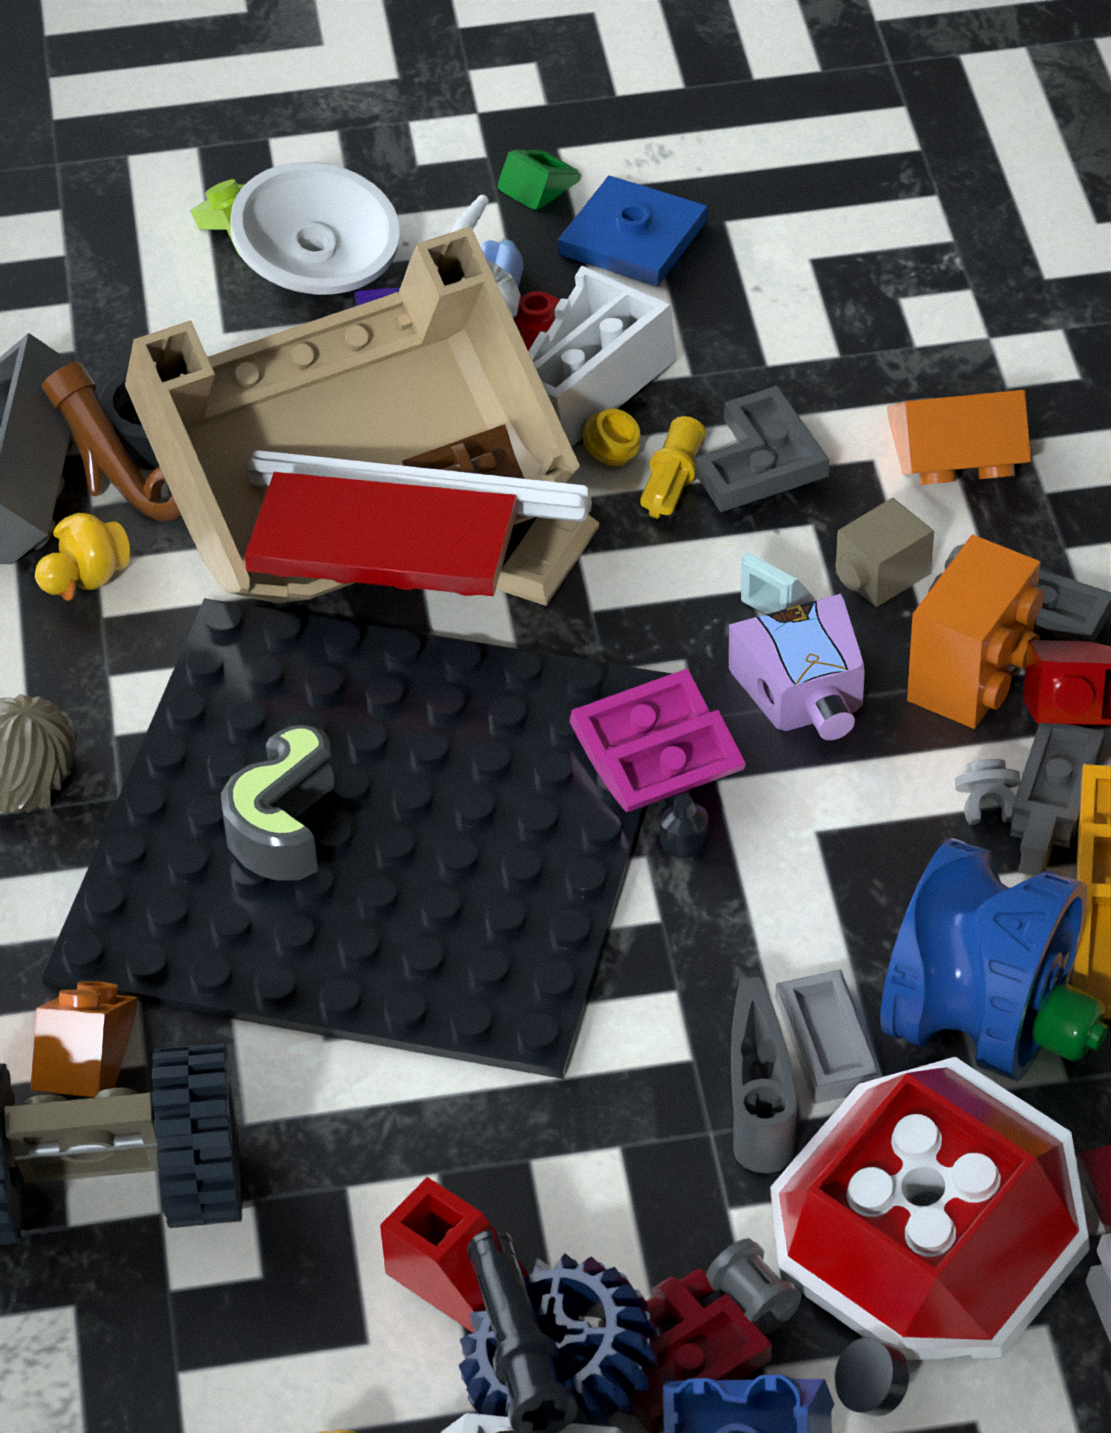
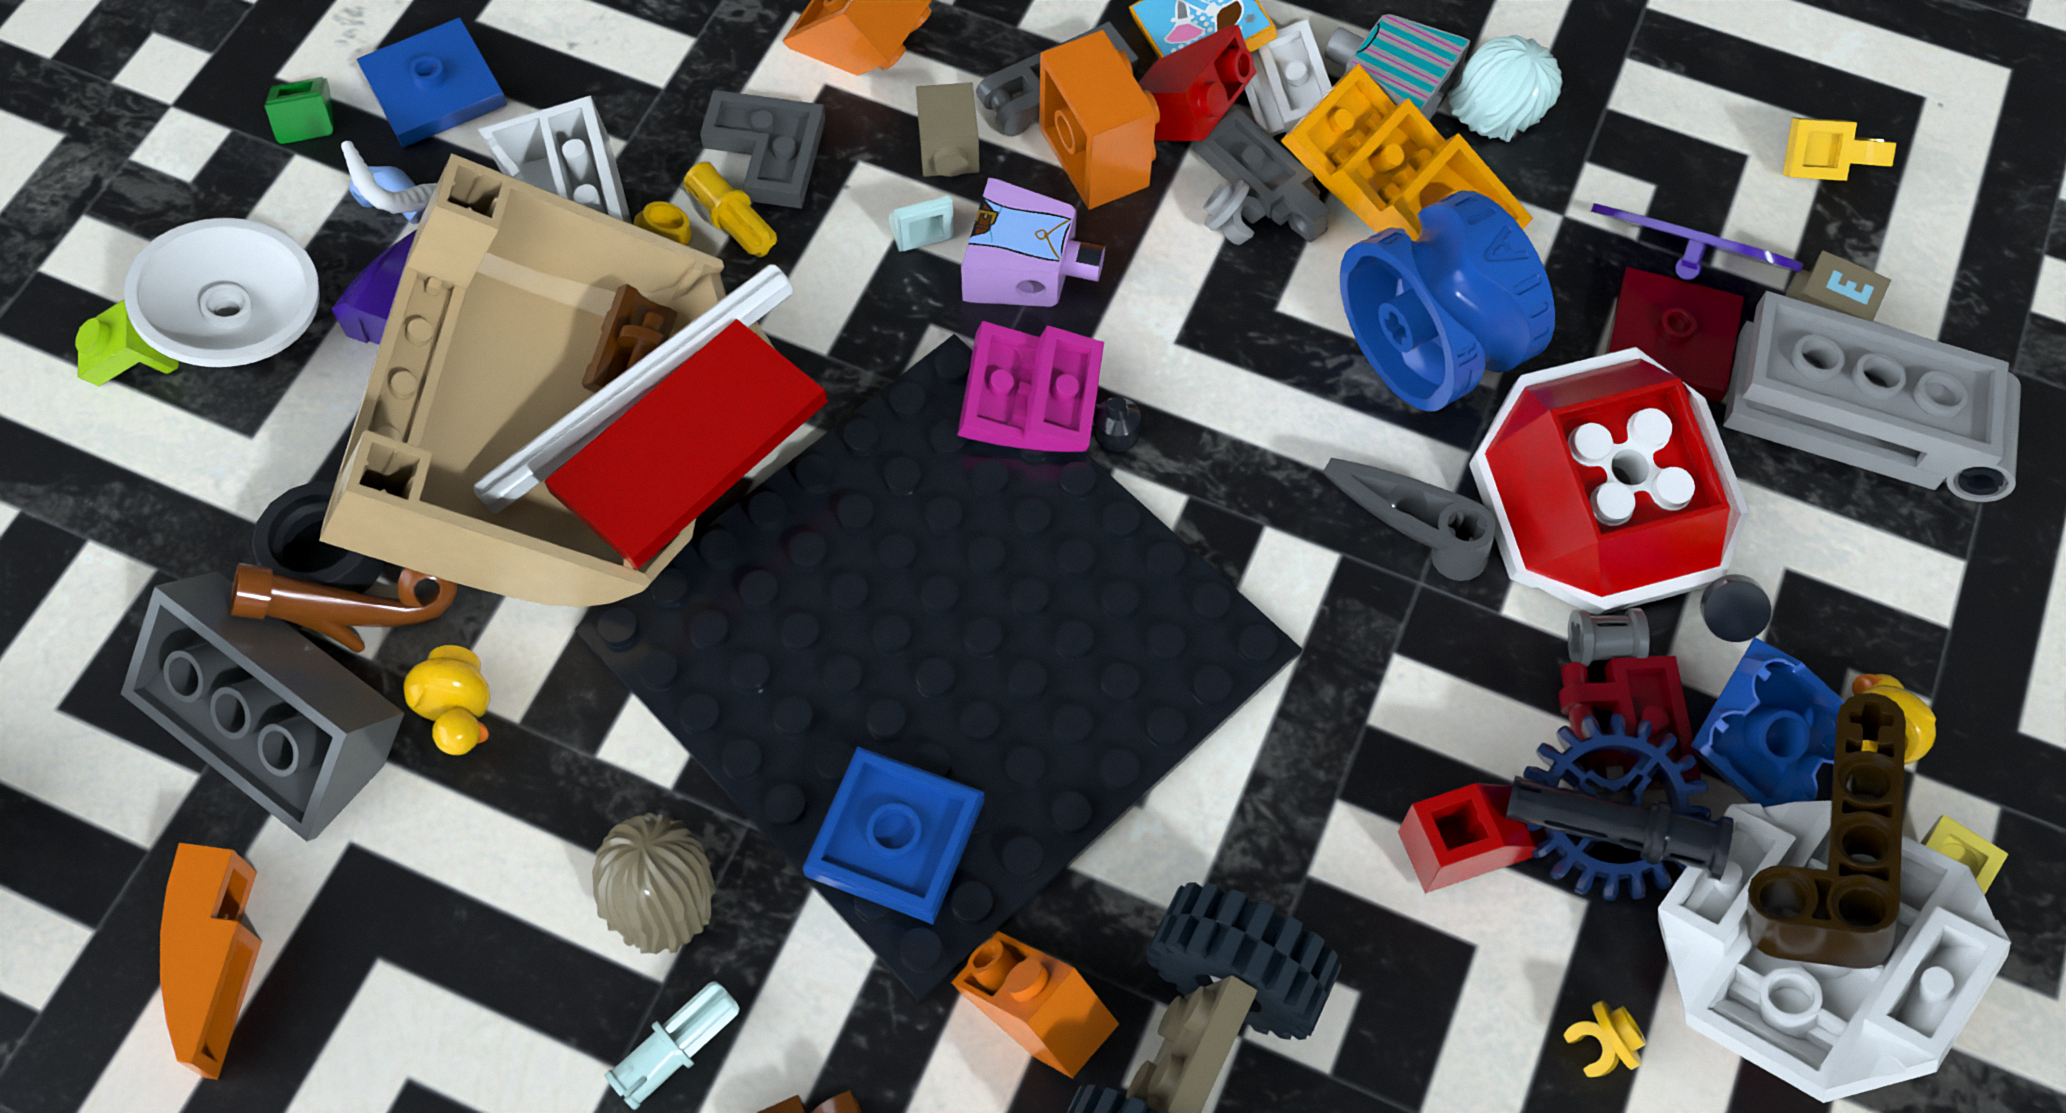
camera: 60 degrees left, 15 degrees up
(159, 869) = (894, 835): none -> blue plate
(269, 796) = (885, 717): dark grey animal -> none
(826, 1034) = (1387, 445): light grey tile -> none

